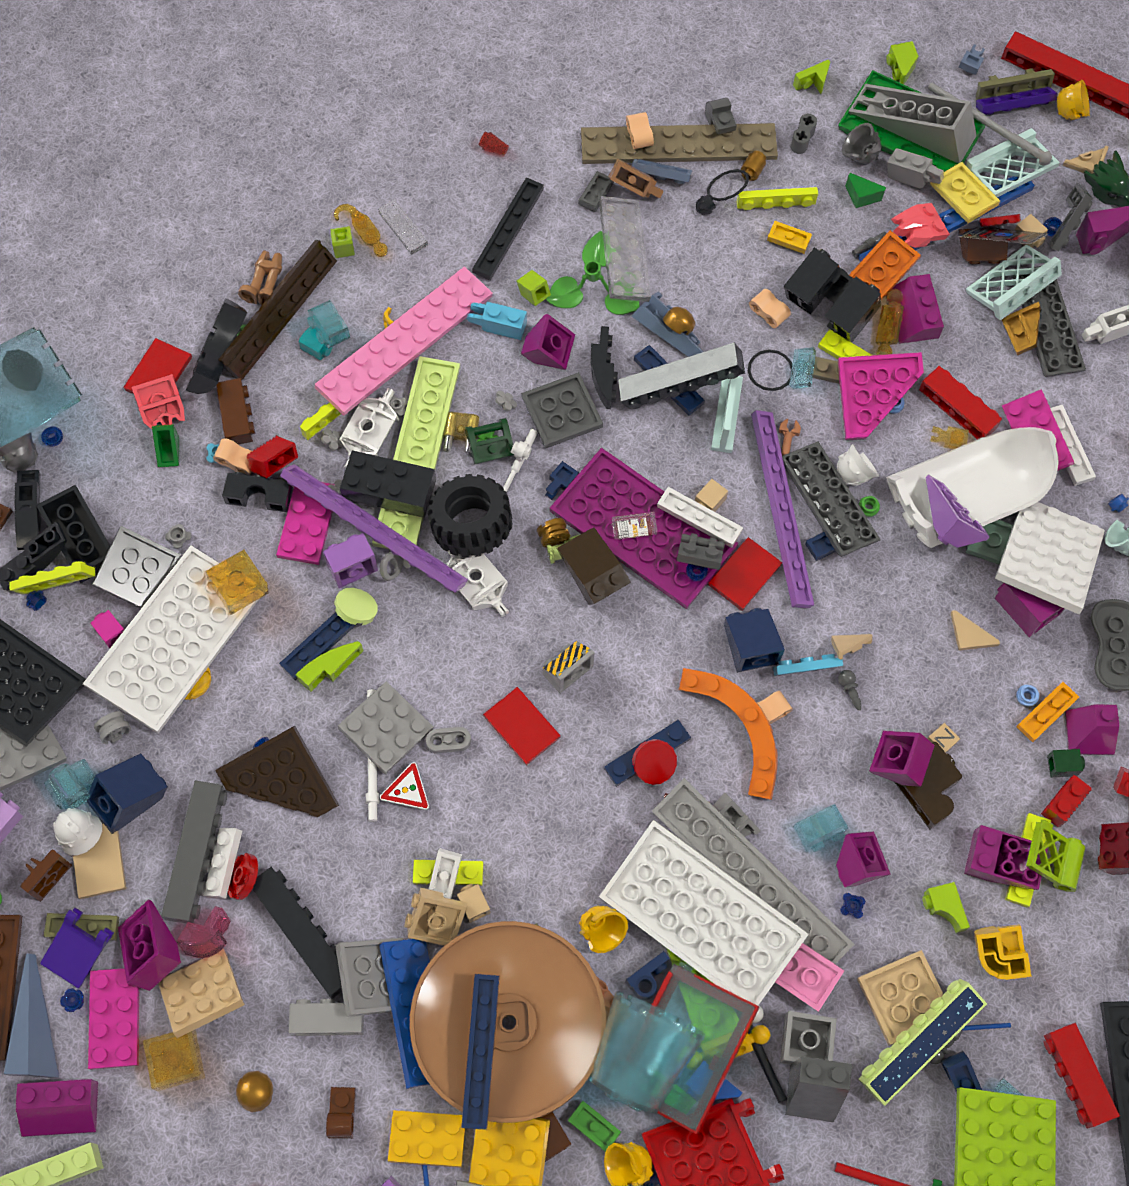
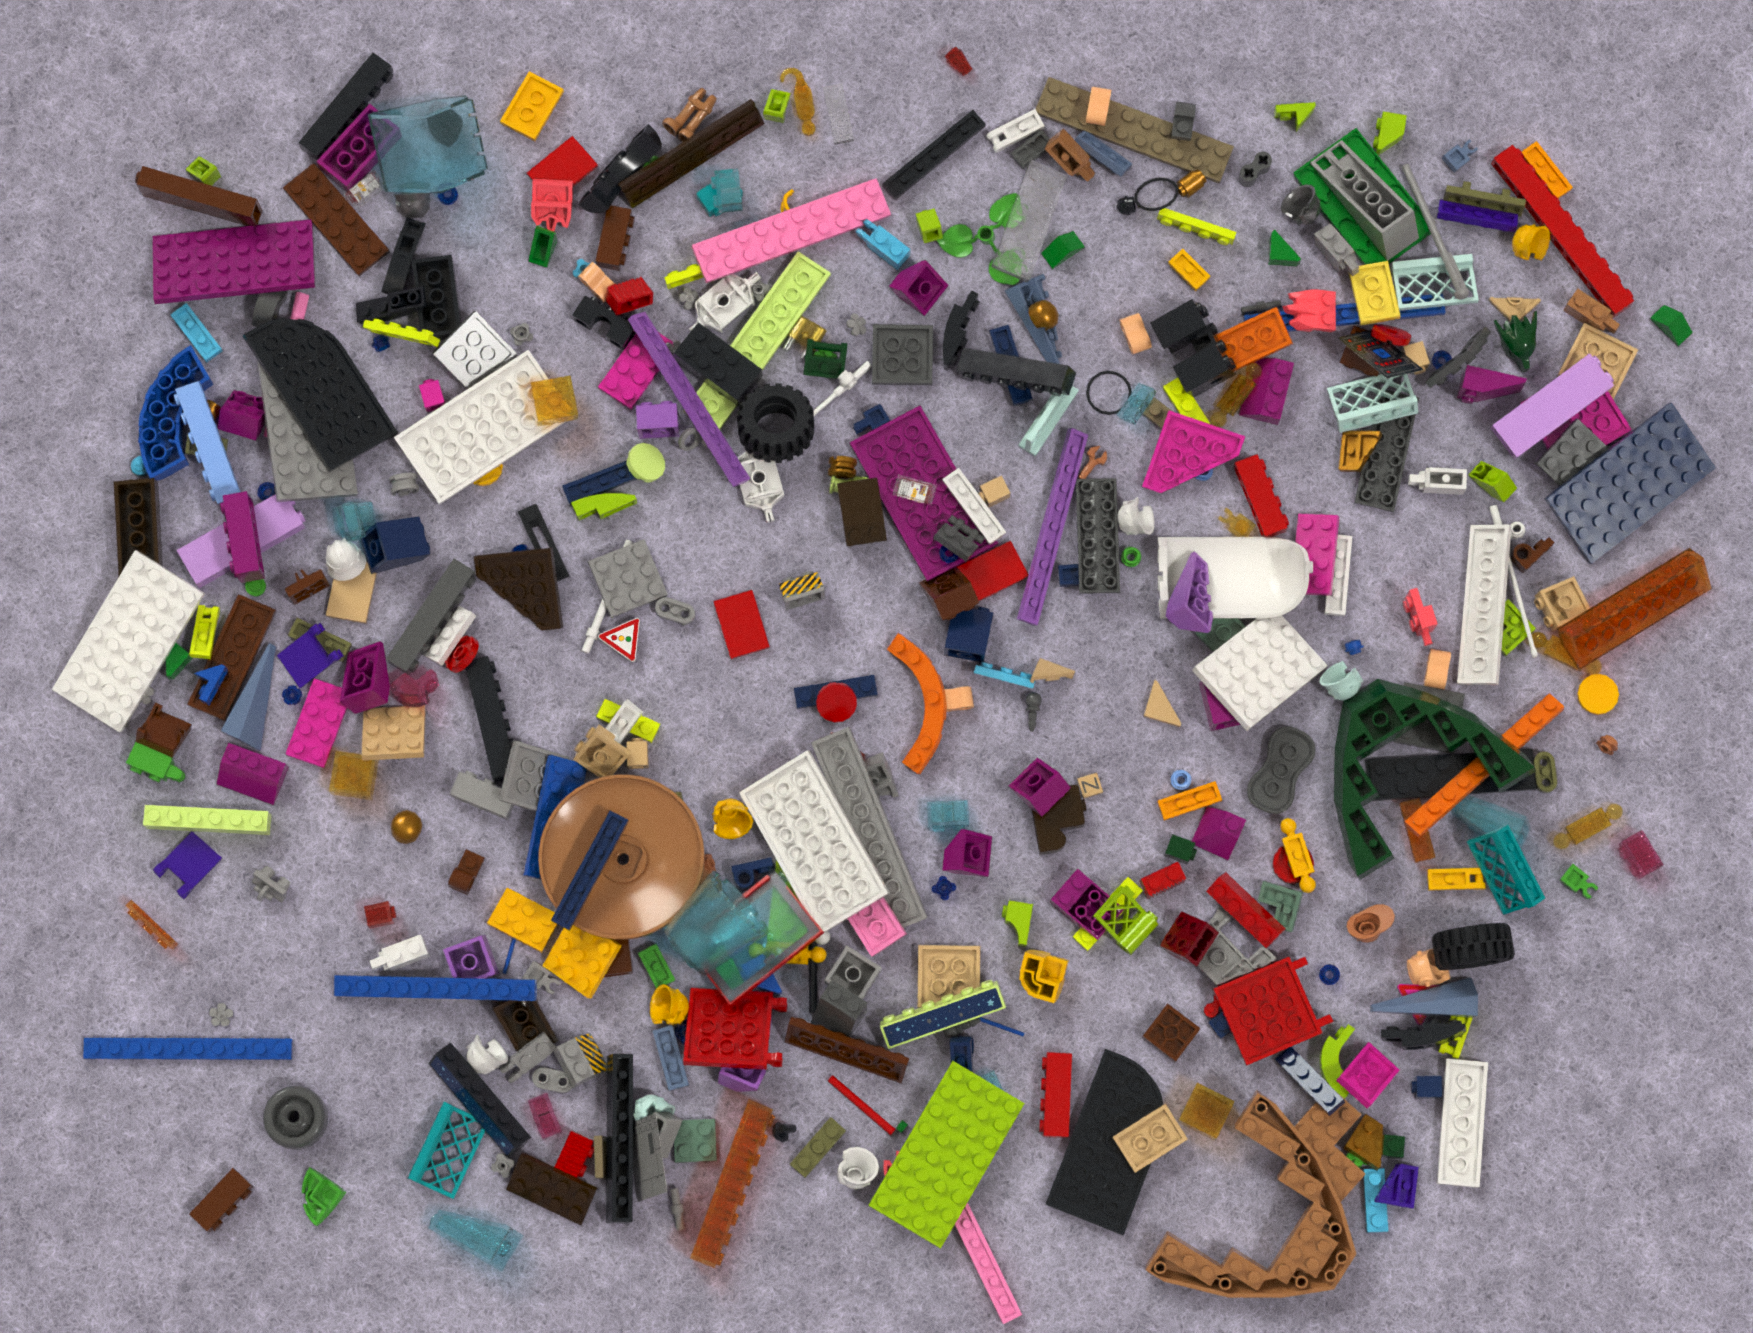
camera: 25 degrees right, 10 degrees up
(105, 327) = (532, 106): none -> yellow plate
(261, 707) = (532, 518): none -> black container
(573, 181) = (1016, 130): none -> white plate
(665, 264) = (1062, 249): none -> green slope
(719, 607) = (950, 594): none -> reddish brown slope
(842, 1127) = (846, 1049): none -> reddish brown plate
(1054, 41) = (1547, 170): none -> light orange plate

